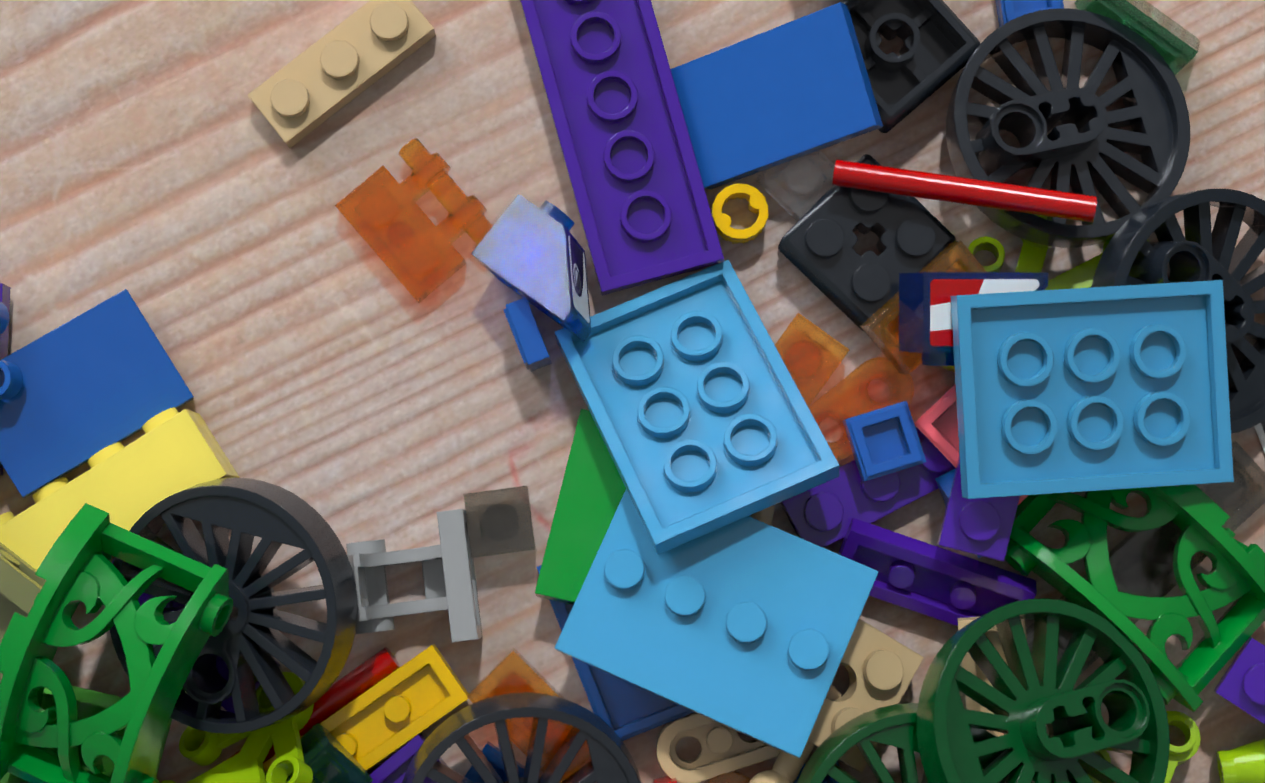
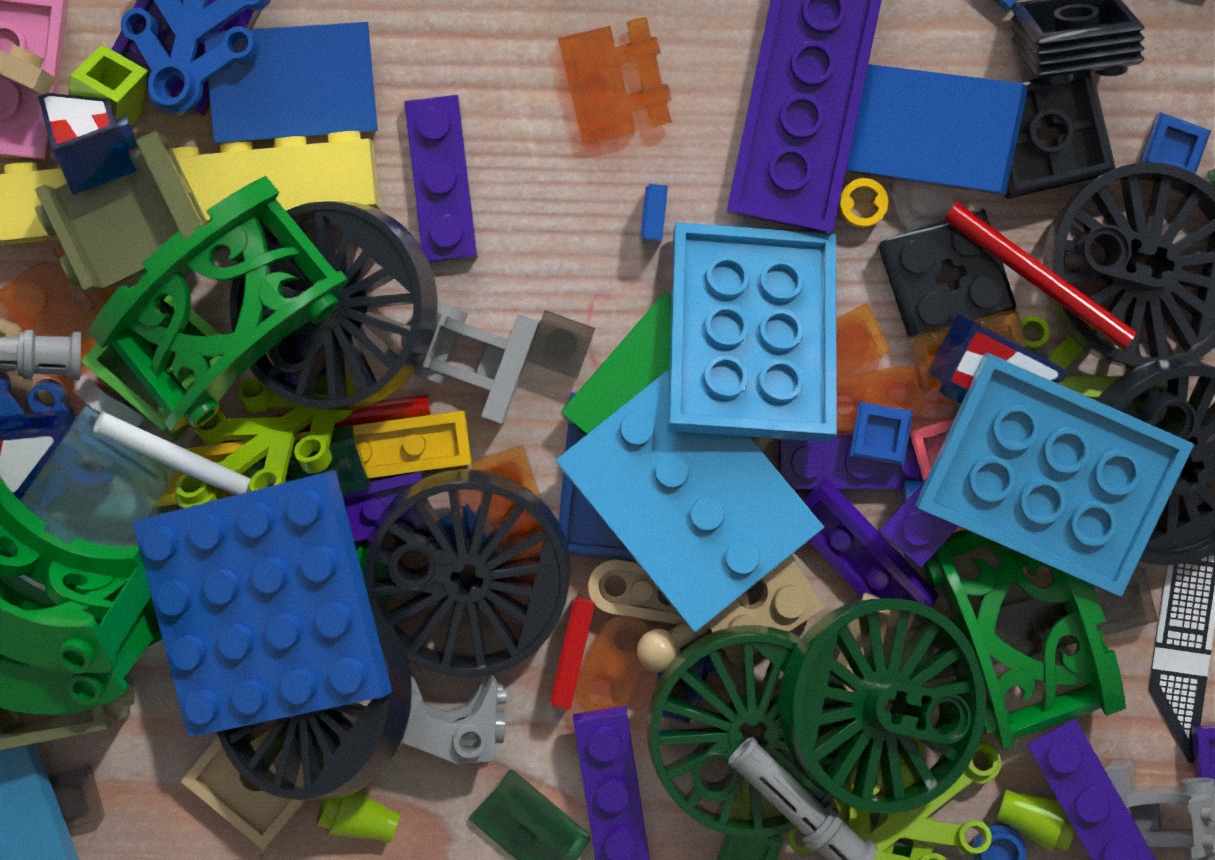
camera: 25 degrees right, 5 degrees up
(286, 413) = (441, 178): none -> dark purple plate
(540, 261) = (692, 164): clear blue slope -> none

